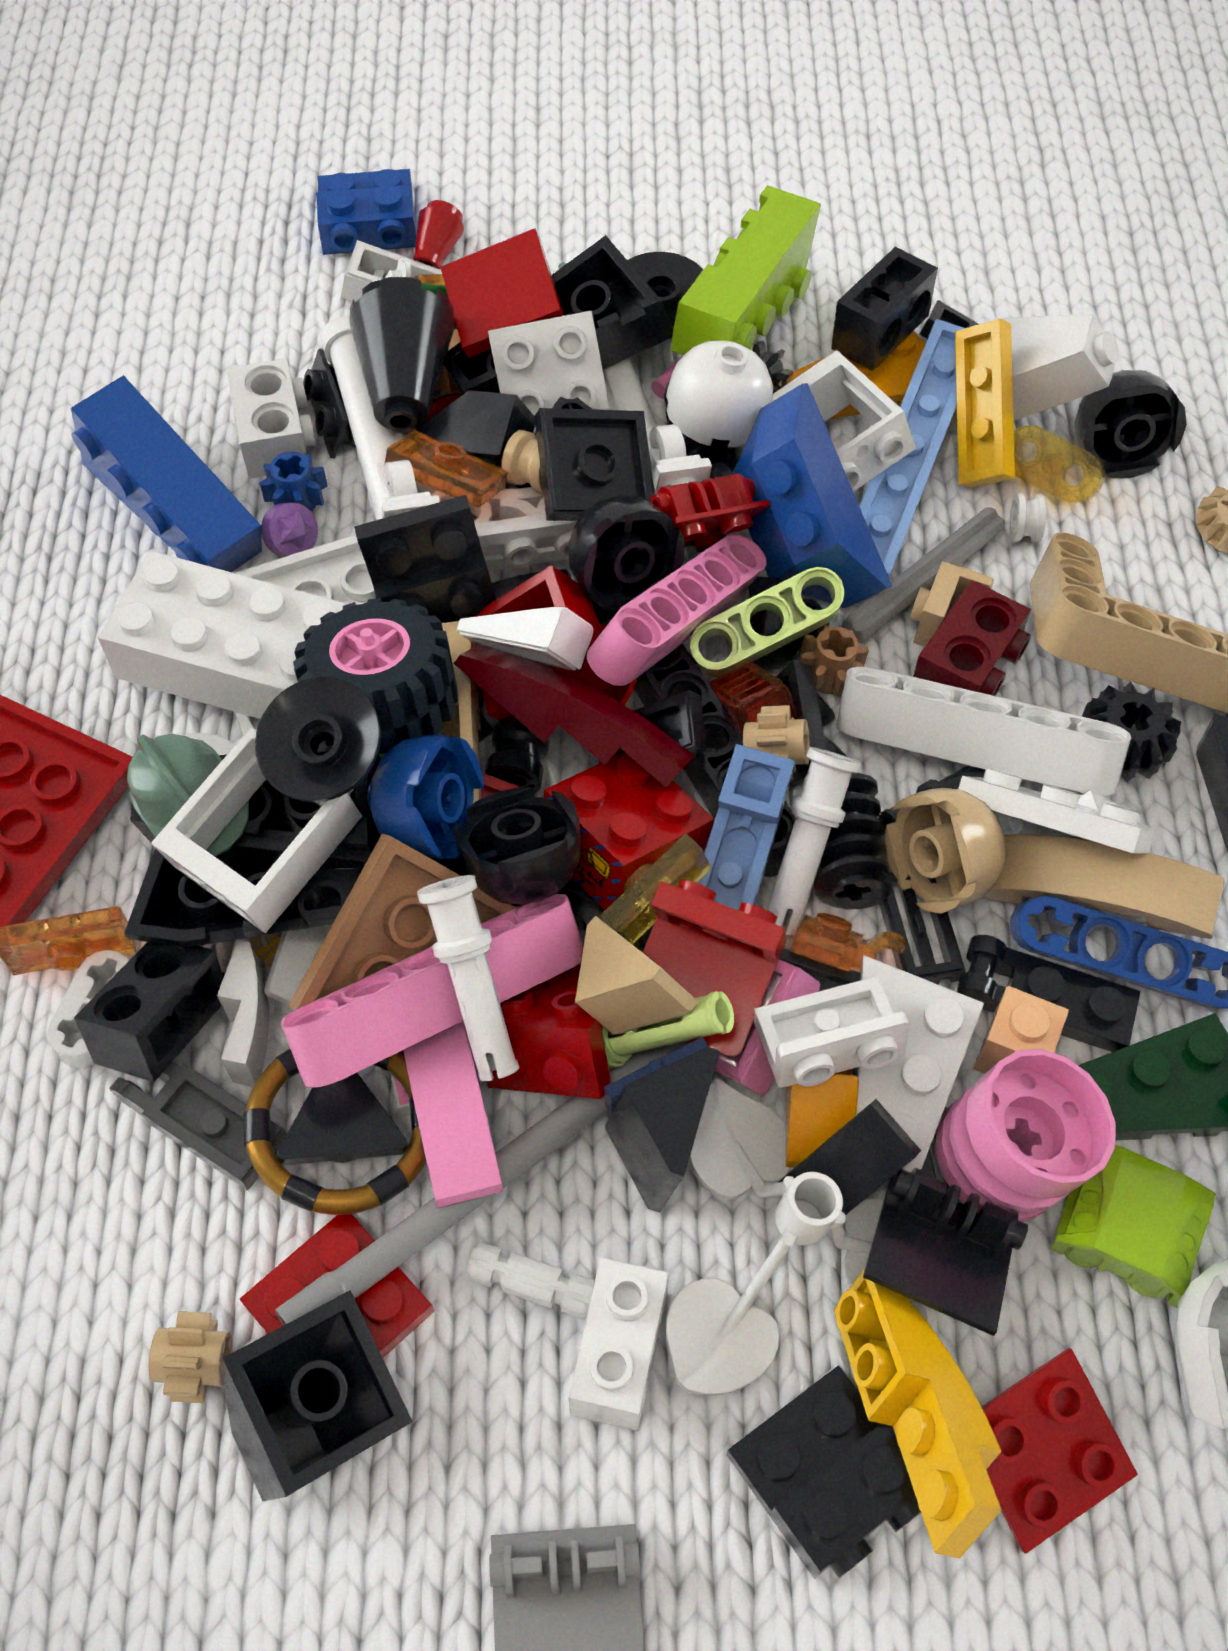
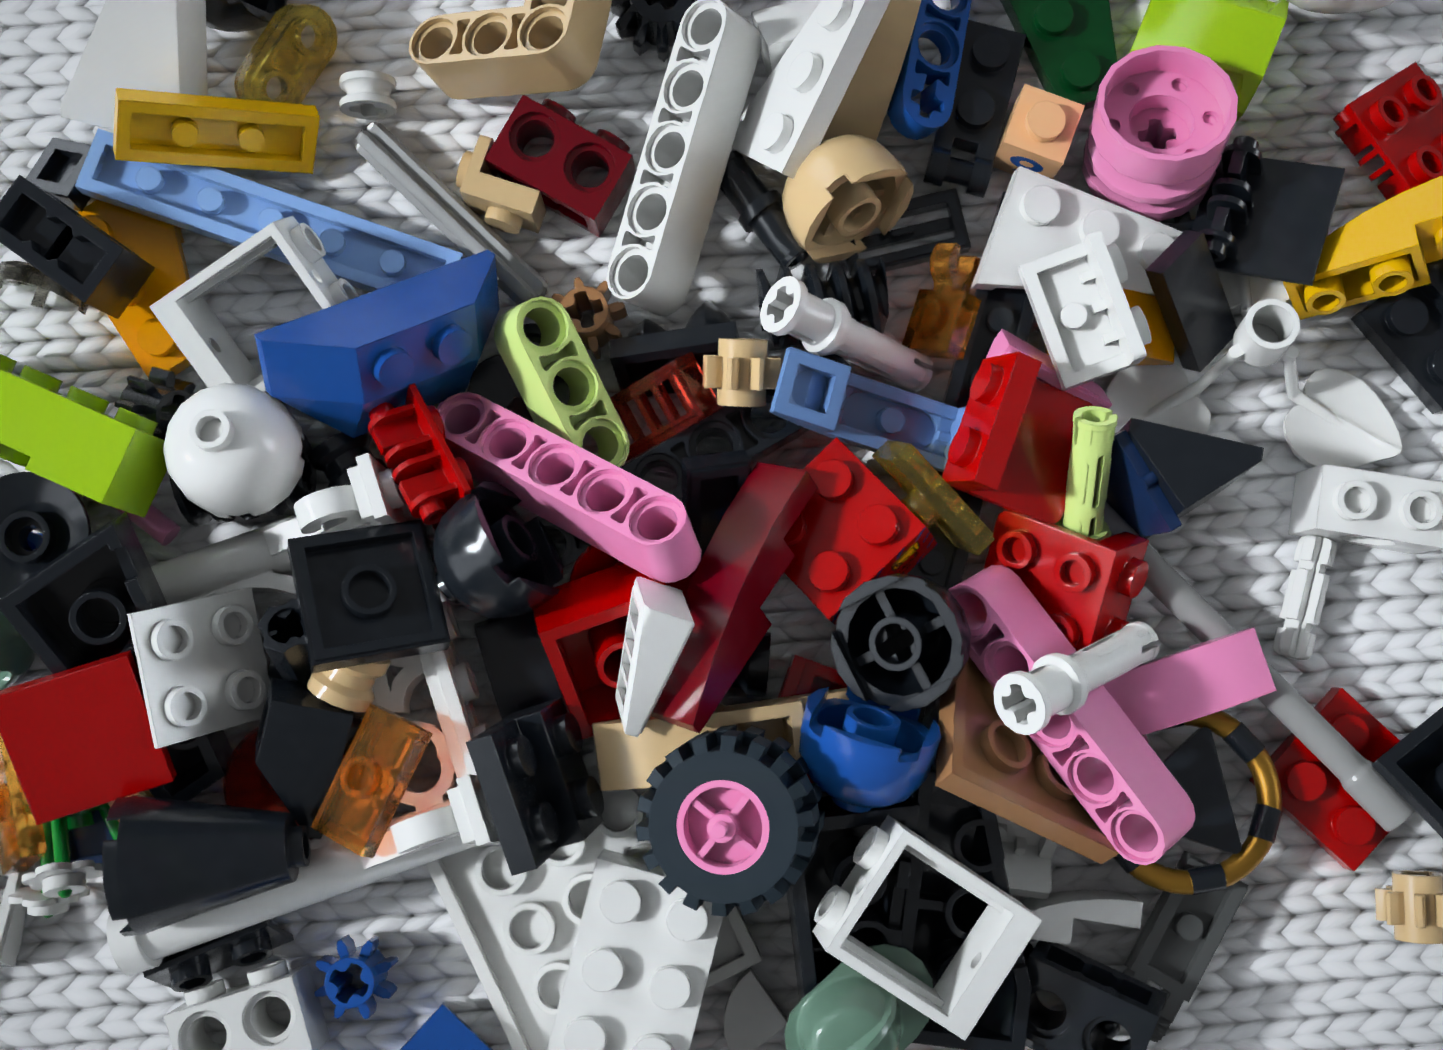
camera: 90 degrees left, 25 degrees up
(289, 529) = (428, 970): medium lavender tile -> none
(297, 725) = (880, 888): black dish -> none
(624, 985) = (1057, 515): tan slope -> none

